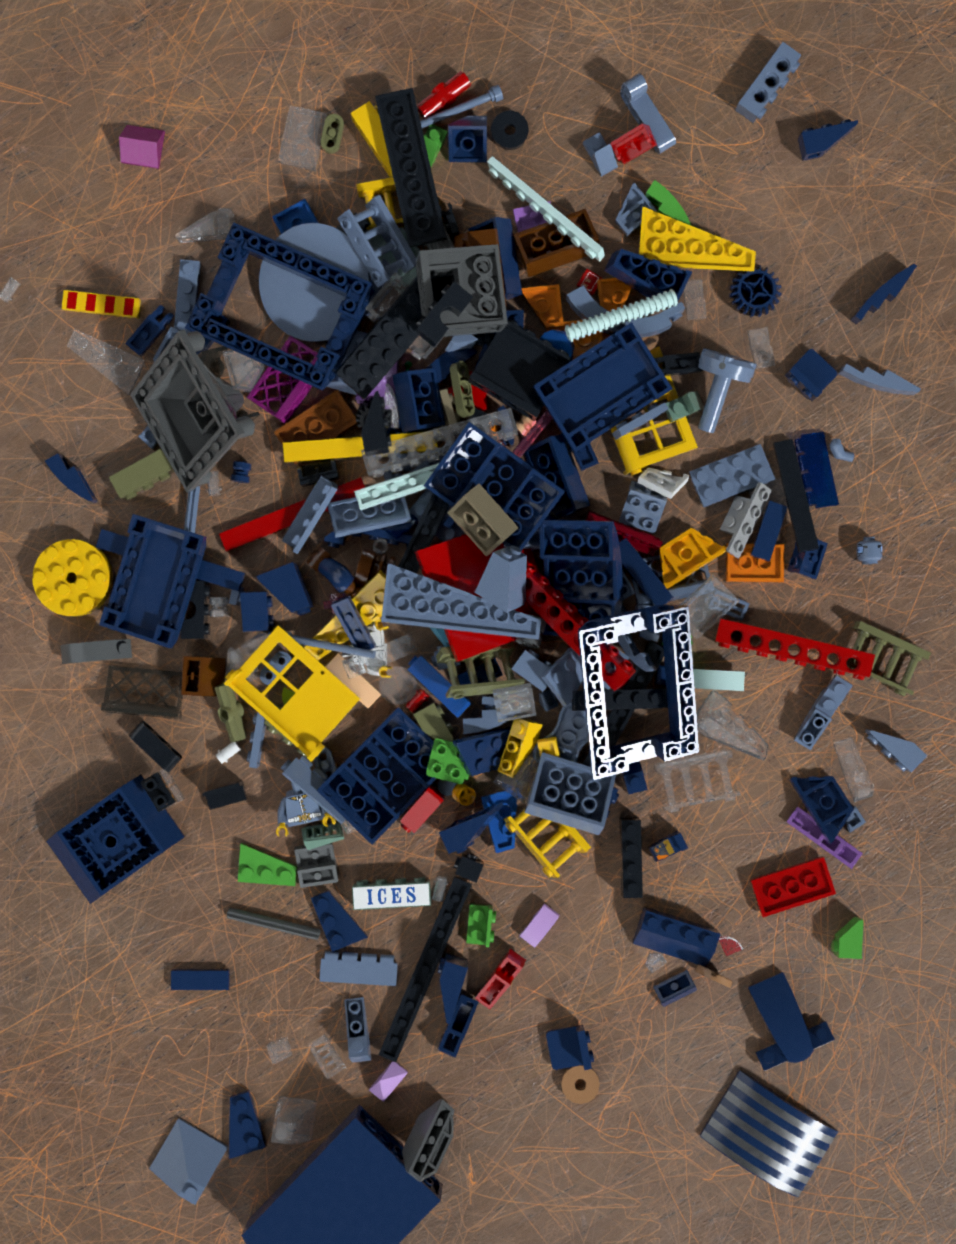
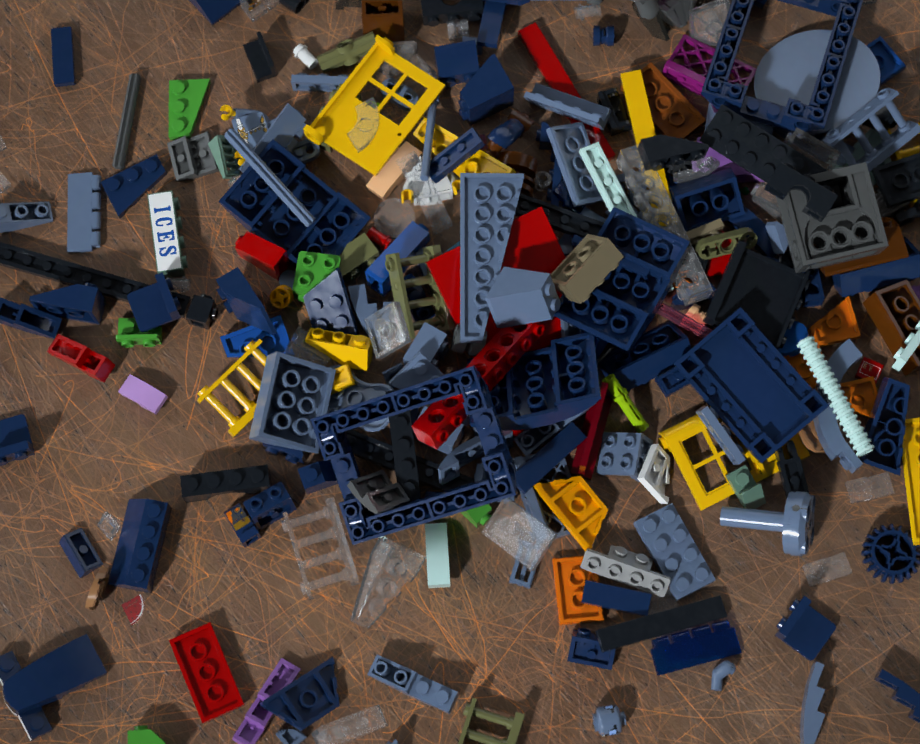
camera: 85 degrees right, 15 degrees down
(310, 702) = (366, 124): none -> clear tile
(355, 796) = (269, 177): none -> sand blue axle
(461, 910) = (154, 304): none -> dark blue bracket
(594, 503) = (621, 396): none -> lime pin
(655, 821) = (269, 505): none -> dark blue bracket
(659, 725) = (378, 492): none -> dark grey slope
(863, 659) = (488, 561): red brick -> none

